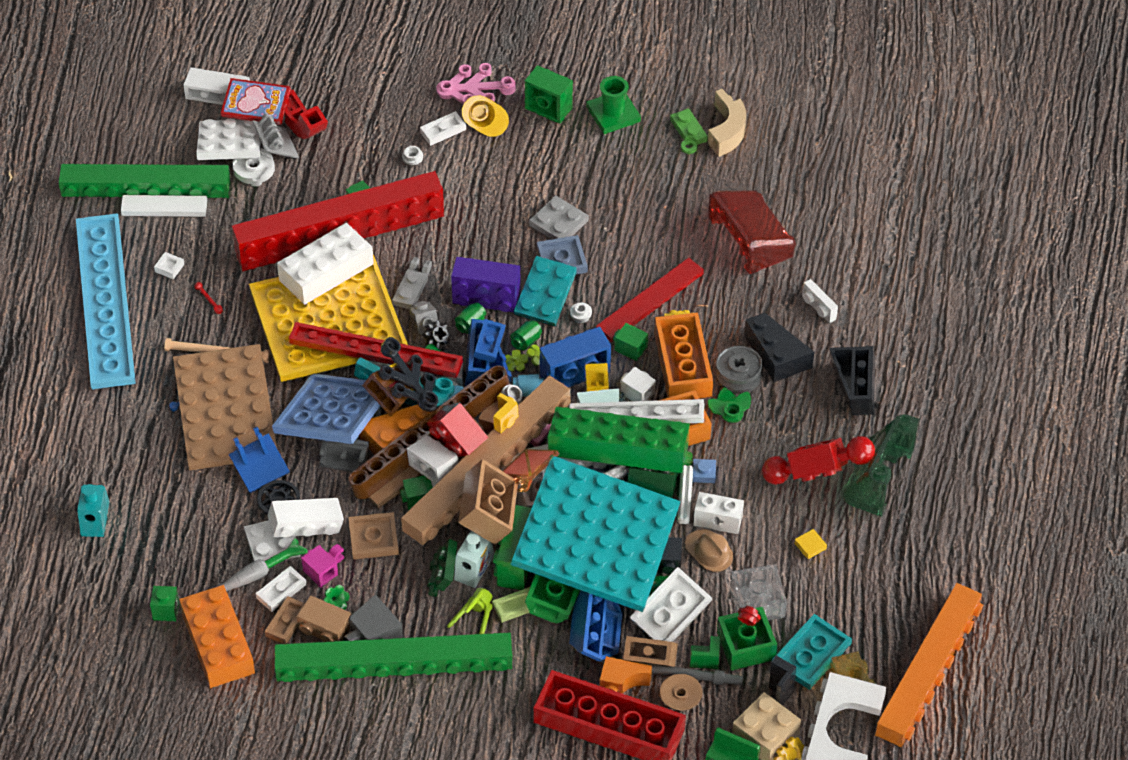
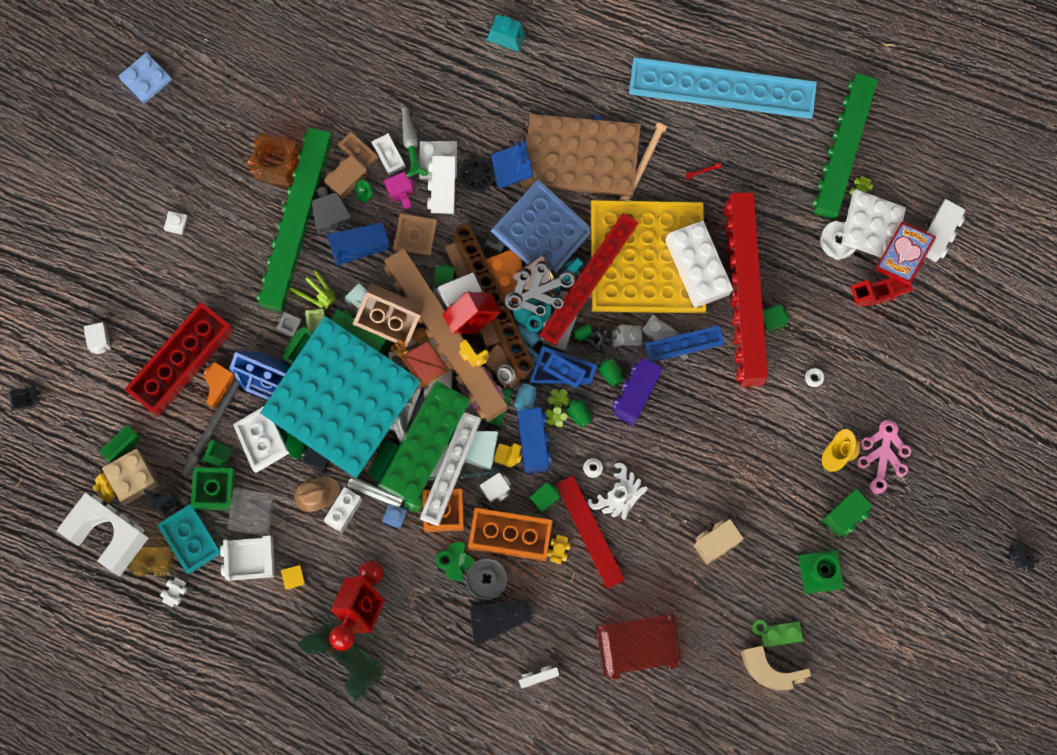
camera: 105 degrees right, 25 degrees up
(163, 205) = (815, 157): white tile -> none
(164, 603) = (401, 66): green brick -> none
(169, 265) = (744, 145): white plate -> none
(187, 159) = (862, 184): none -> lime piece
(217, 636) = (358, 96): orange brick -> none
(274, 138) = (861, 262): light grey hinge -> none
(323, 676) = (281, 174): none -> clear orange brick
(403, 585) = (358, 243): none -> blue wedge
(418, 258) = (684, 344): none -> blue plate
(442, 568) = (360, 275): dark green plate -> none
(443, 128) = (839, 411): white plate -> none
(525, 628) = (288, 324): none -> light grey plate
(545, 291) = (621, 443): teal plate -> none
(558, 219) = (703, 482): light grey plate -> none
(564, 250) = (658, 470): sand blue plate -> none
(603, 276) = (622, 496): none -> white animal
(619, 185) = (718, 541): none -> tan brick
(650, 651) = (226, 409): medium nougat brick -> none
(683, 685) = (183, 415): medium nougat piece -> none
(748, 615) = (218, 489): red plate -> none
(808, 587) = (248, 558): none -> white panel
(856, 377) = (440, 676): black wedge -> none
(877, 651) = (176, 588): none -> white piece
(928, 665) = (142, 628): orange brick -> none

